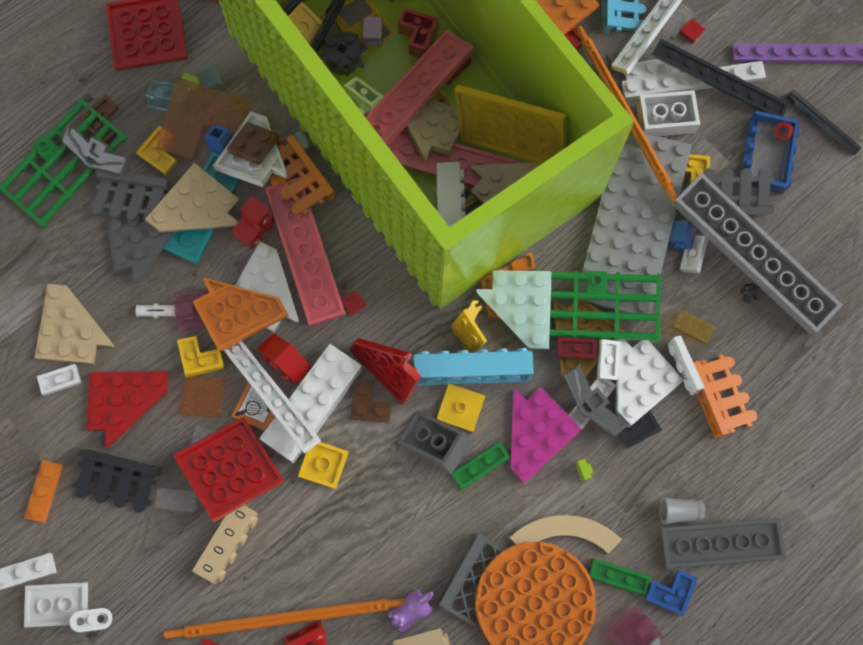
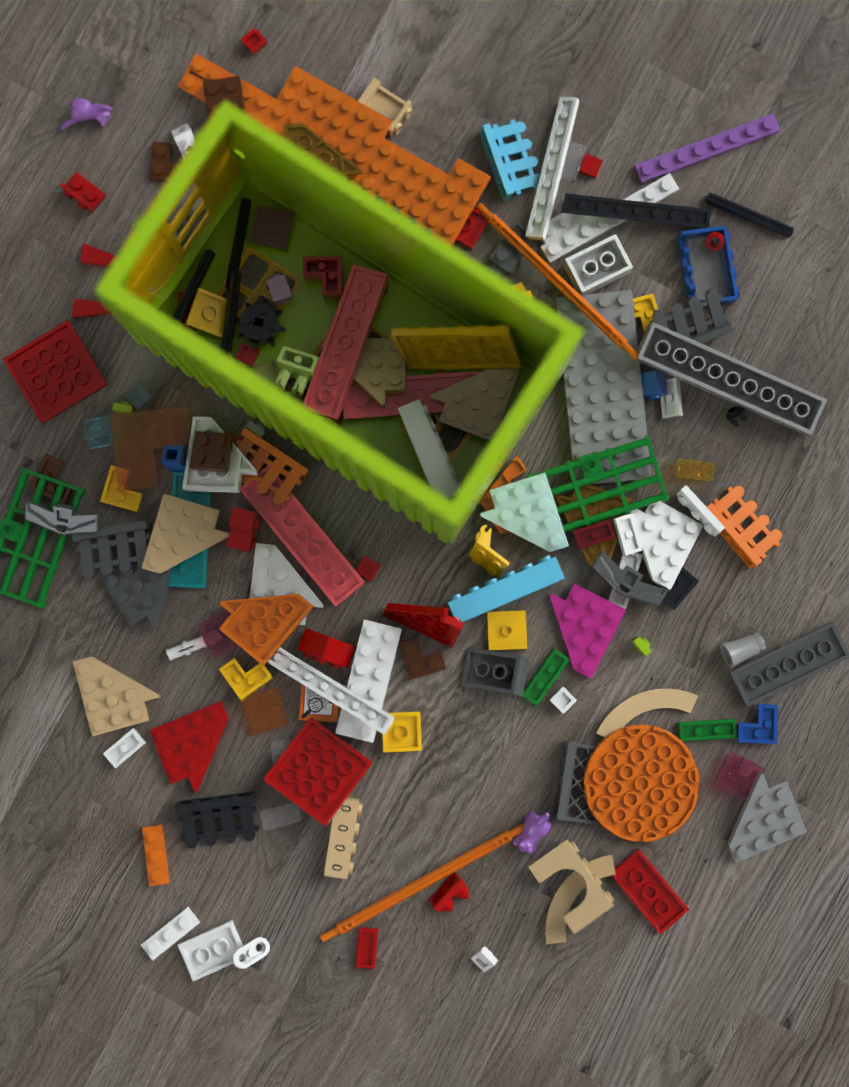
camera: 20 degrees left, 10 degrees up
(489, 493) = (563, 700): none -> white plate

